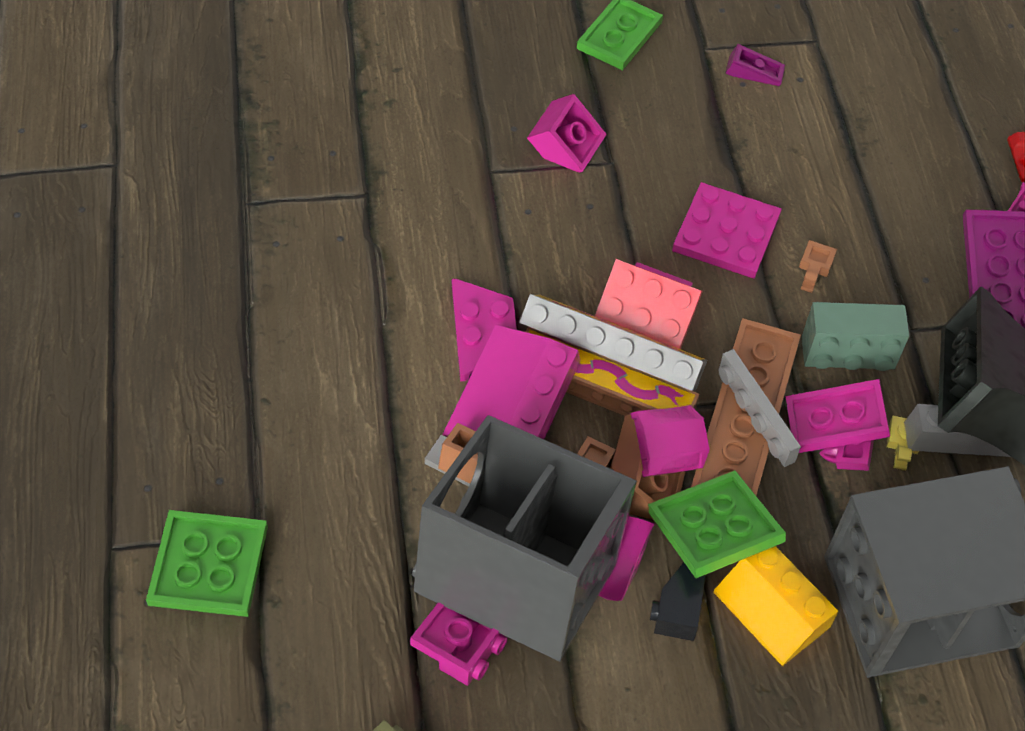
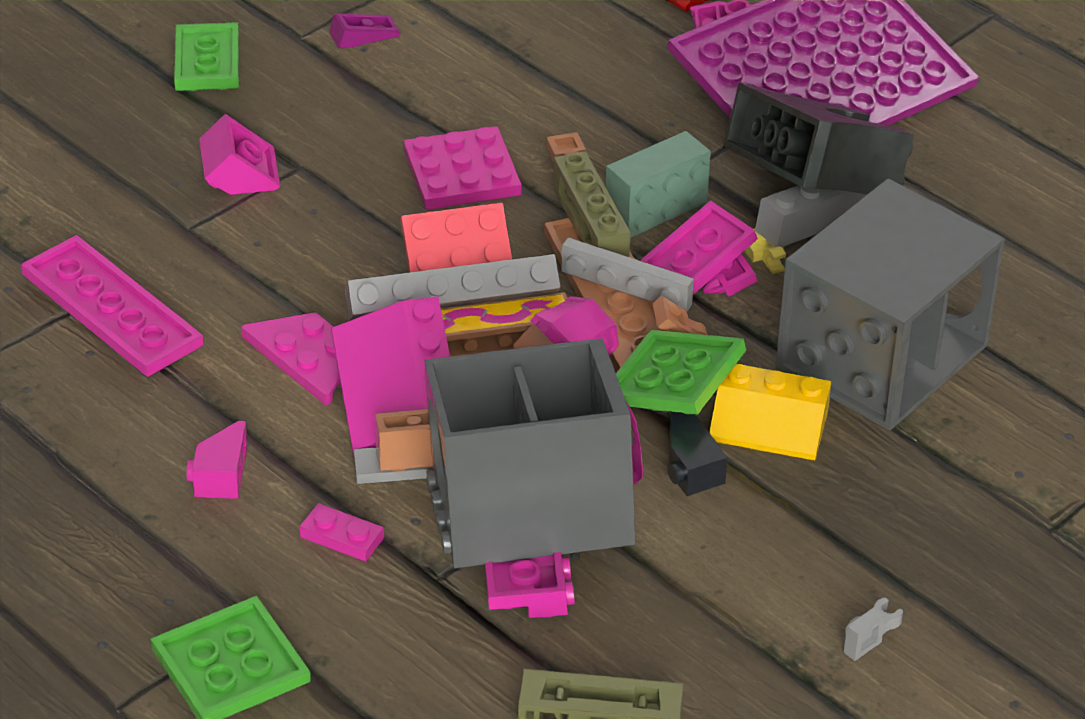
camera: 35 degrees left, 15 degrees down
(340, 388) = (219, 463): none -> dark pink slope
(376, 501) = (342, 532): none -> dark pink plate
(381, 210) = (112, 305): none -> dark pink plate
(762, 473) = (674, 318): none -> nougat plate
(779, 330) = (591, 206): none -> olive brick

